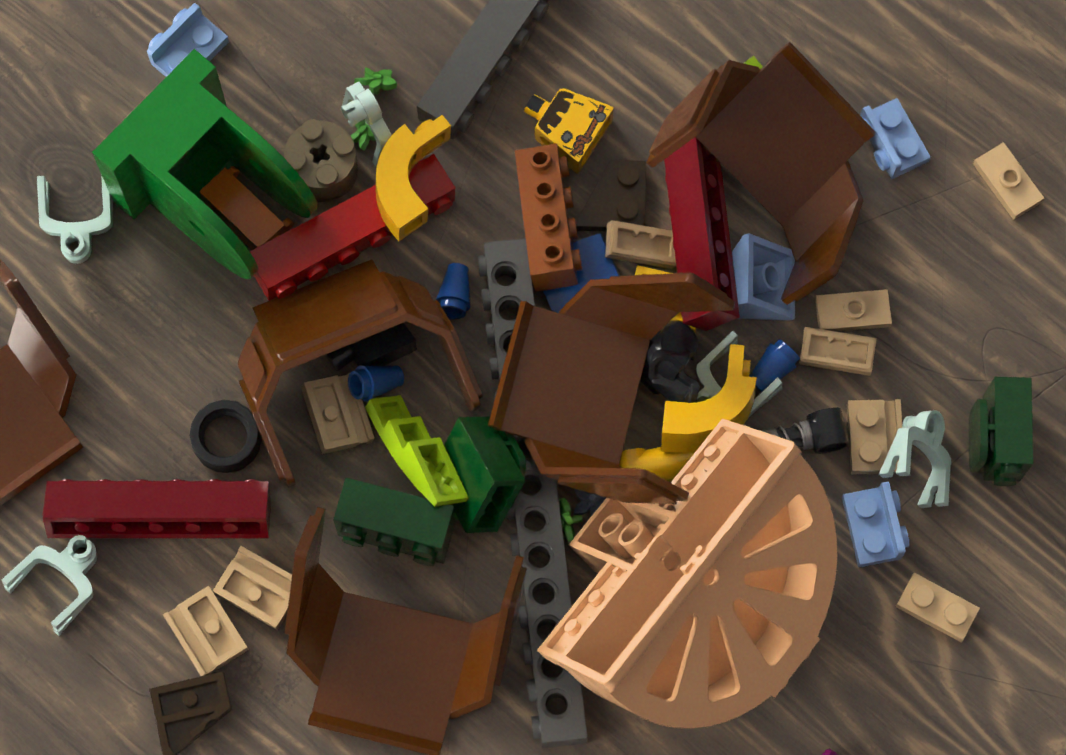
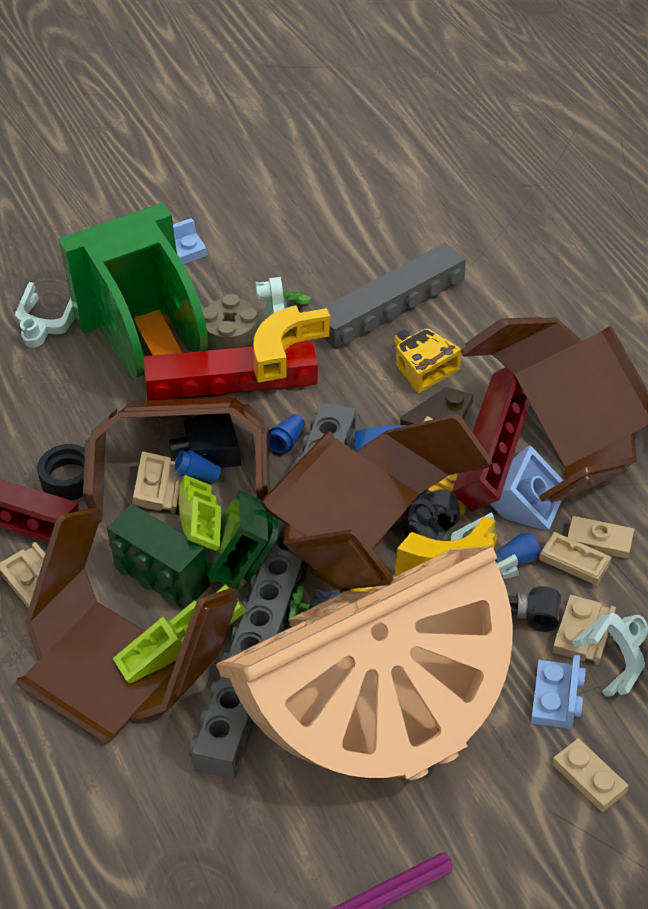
camera: 25 degrees right, 25 degrees down
(460, 607) = (159, 644): none -> lime slope
(546, 217) = (377, 399): dark orange brick -> none

